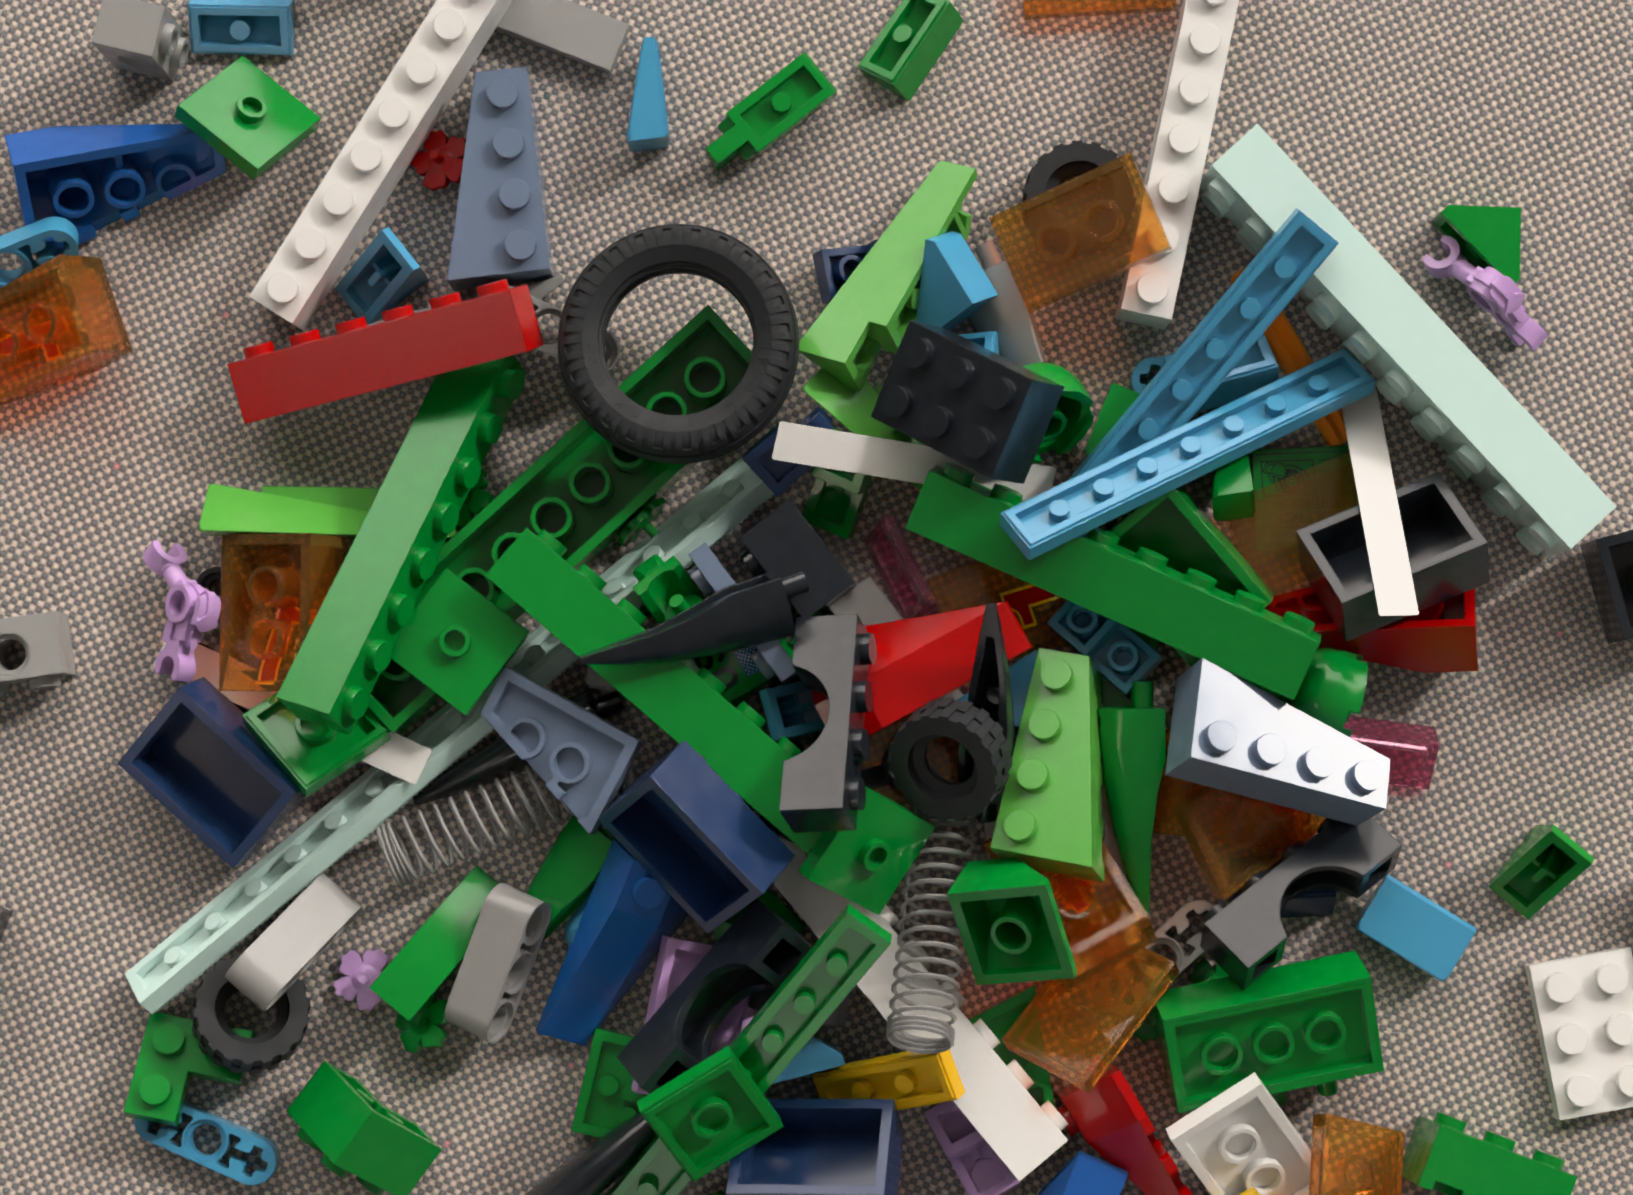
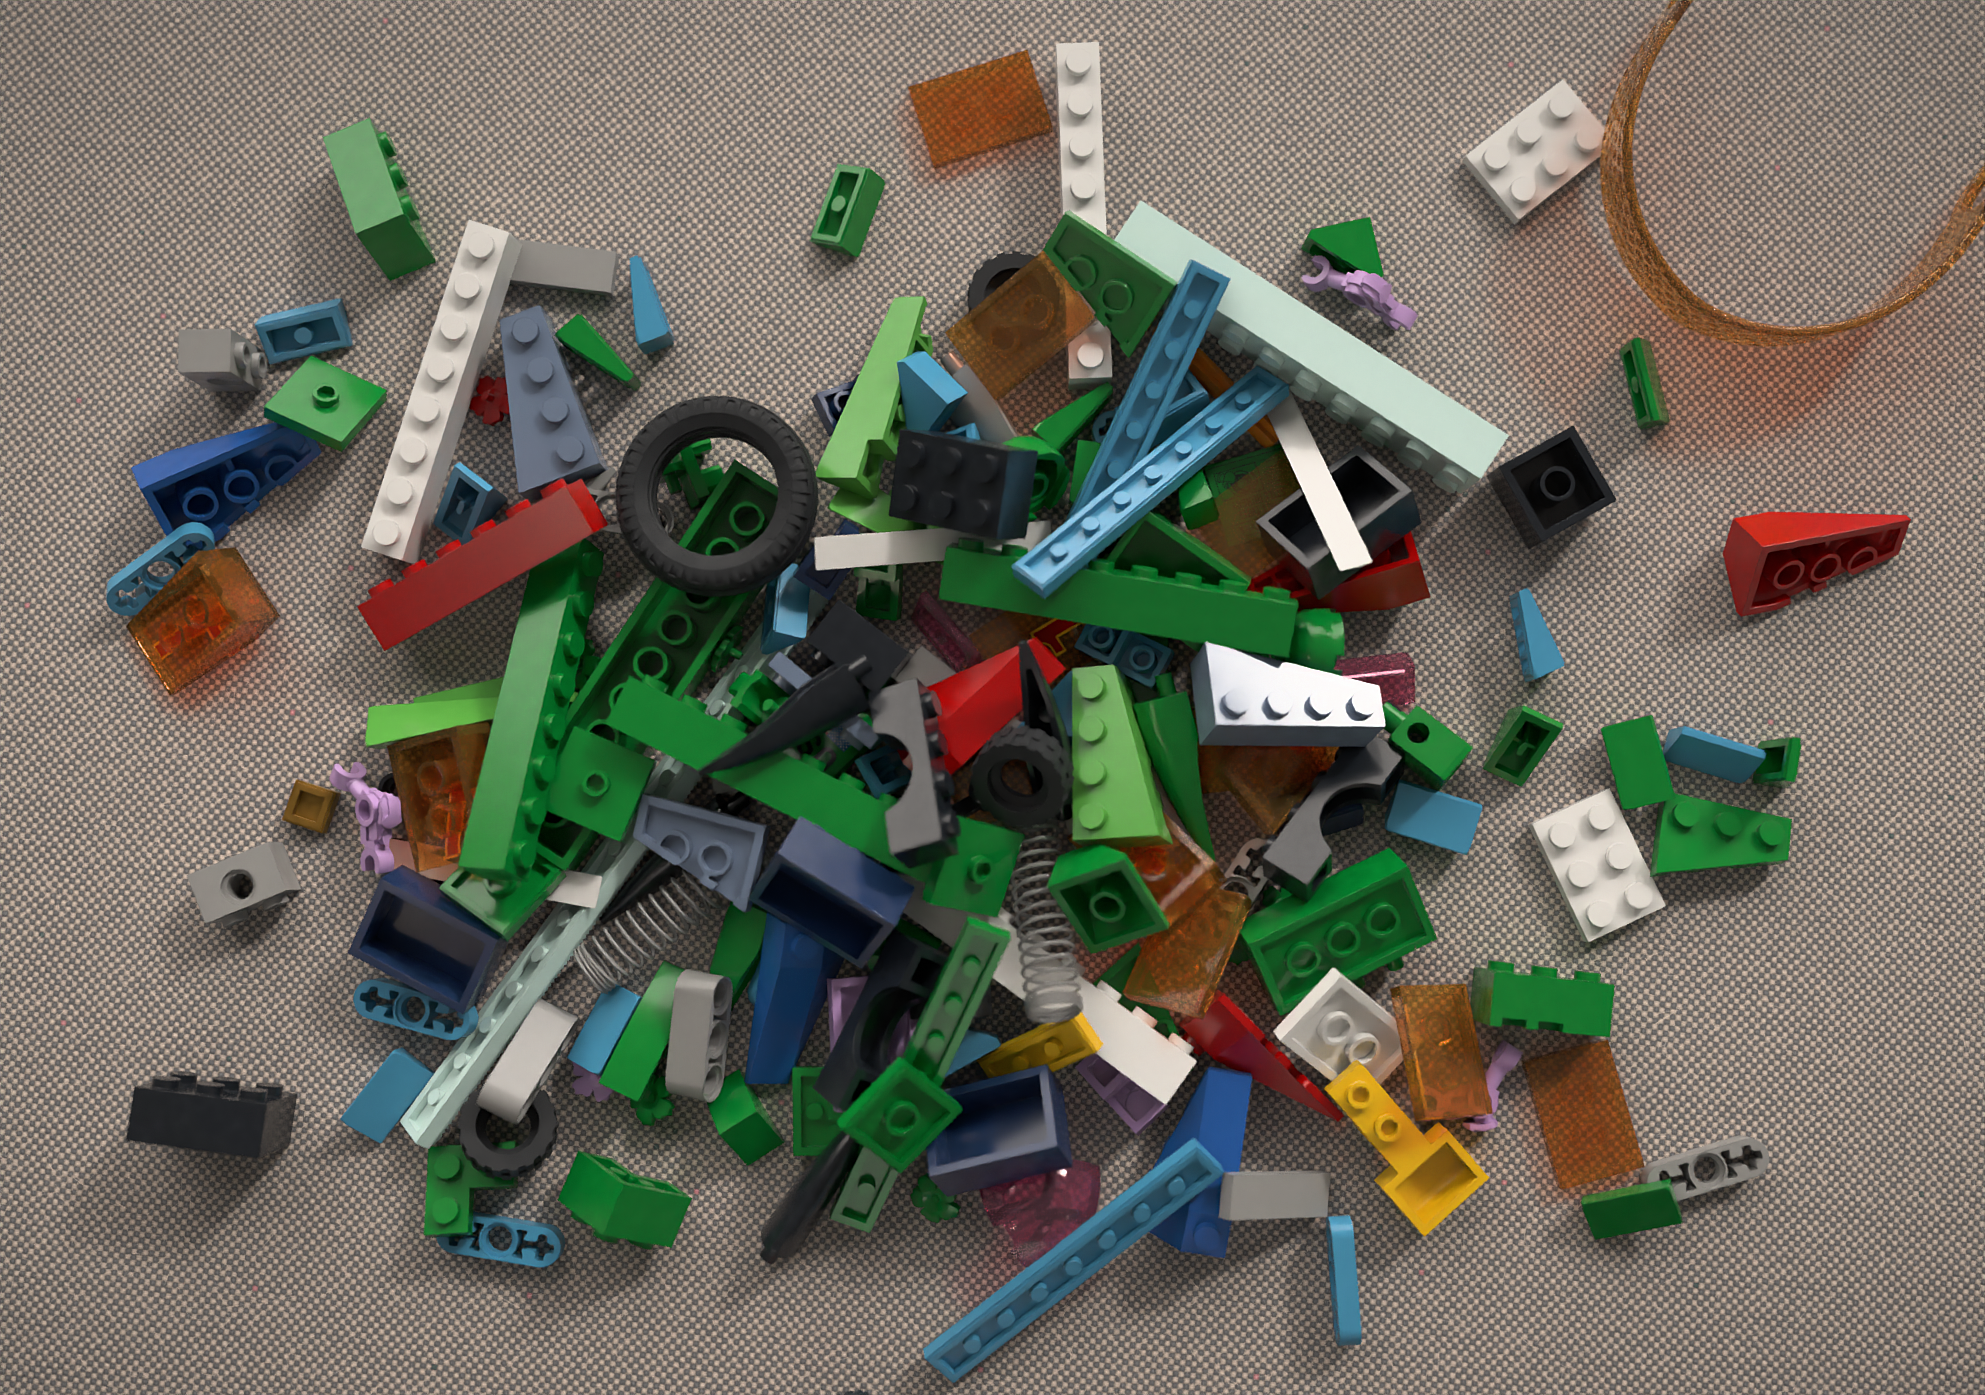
camera: 10 degrees left, 0 degrees up
(112, 581) = (311, 806): none -> pearl gold tile
(119, 940) = (388, 1095): none -> dark azure slope
(138, 843) = (398, 1015): none -> dark azure beam
(388, 928) = (604, 1029): none -> dark azure slope
(524, 1074) = (743, 1119): none -> green slope
(570, 126) = (587, 344): none -> green slope
(647, 310) = (695, 483): none -> green hips
(720, 497) = (784, 612): none -> dark azure slope
(771, 112) = (748, 293): green hinge -> none
(1107, 358) = (1071, 420): none -> green slope
(1200, 206) = (1110, 278): none -> green wing
(1434, 860) = (1439, 753): none -> green torso
(1587, 755) = (1534, 641): none -> dark azure slope

